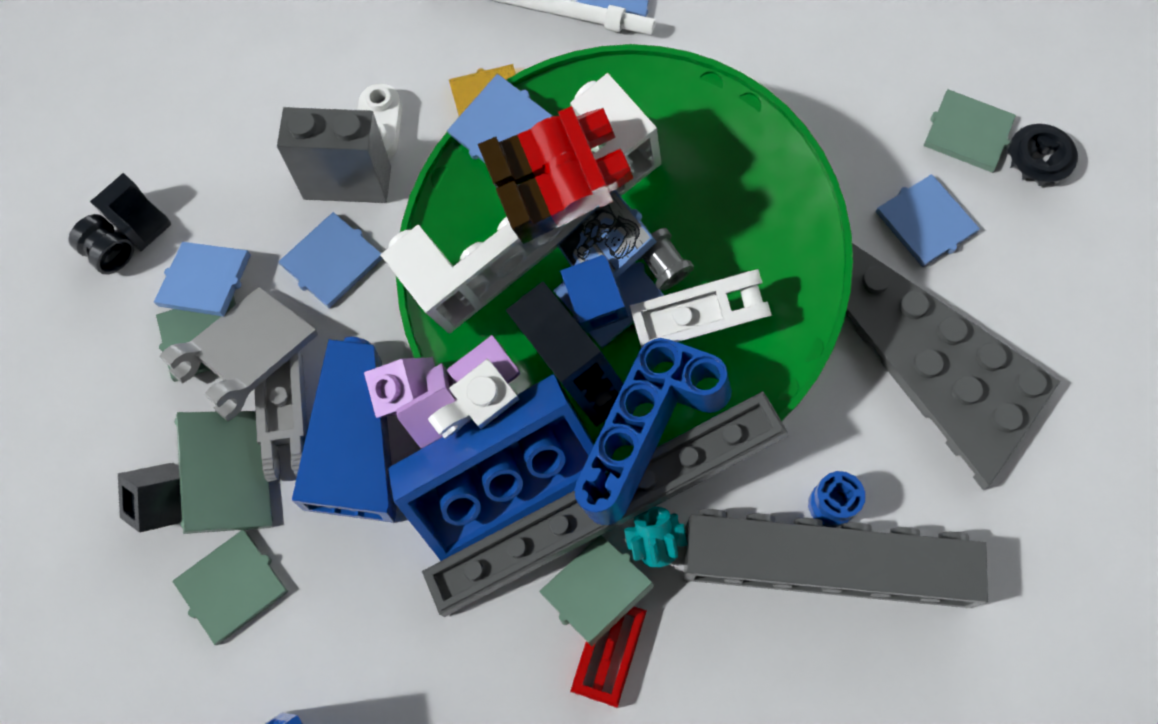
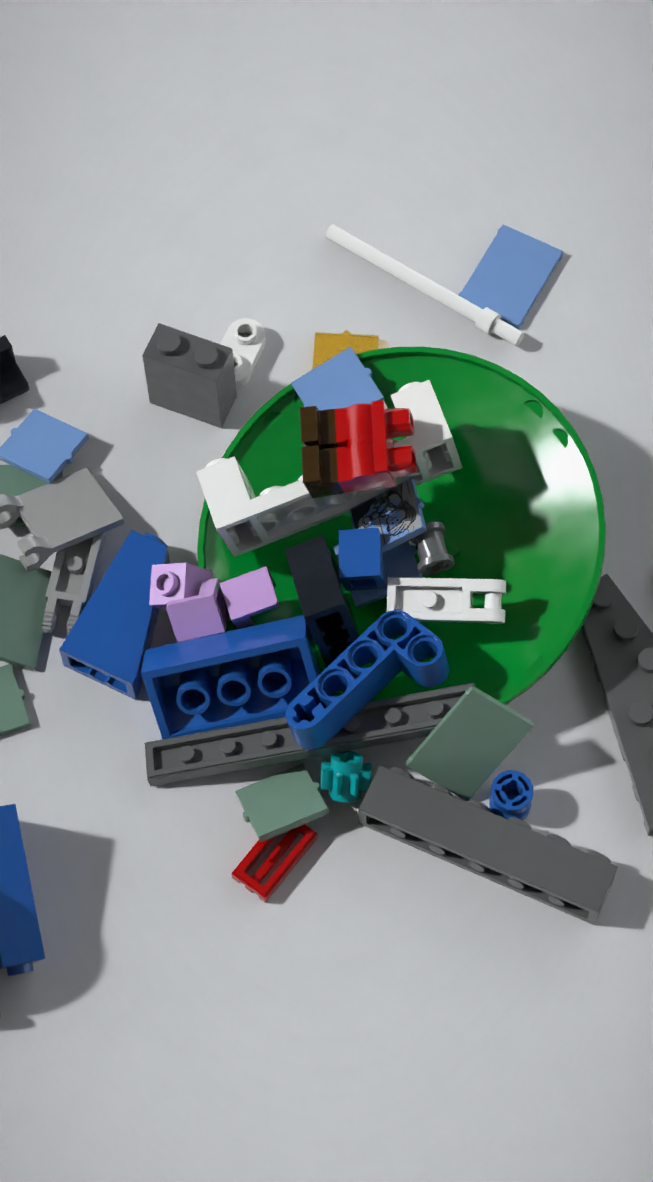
camera: 20 degrees right, 5 degrees down
(330, 260) = (155, 463): medium blue piece -> none
(479, 396) = (238, 613): white plate -> none
(781, 458) = (469, 743): none -> sand green piece

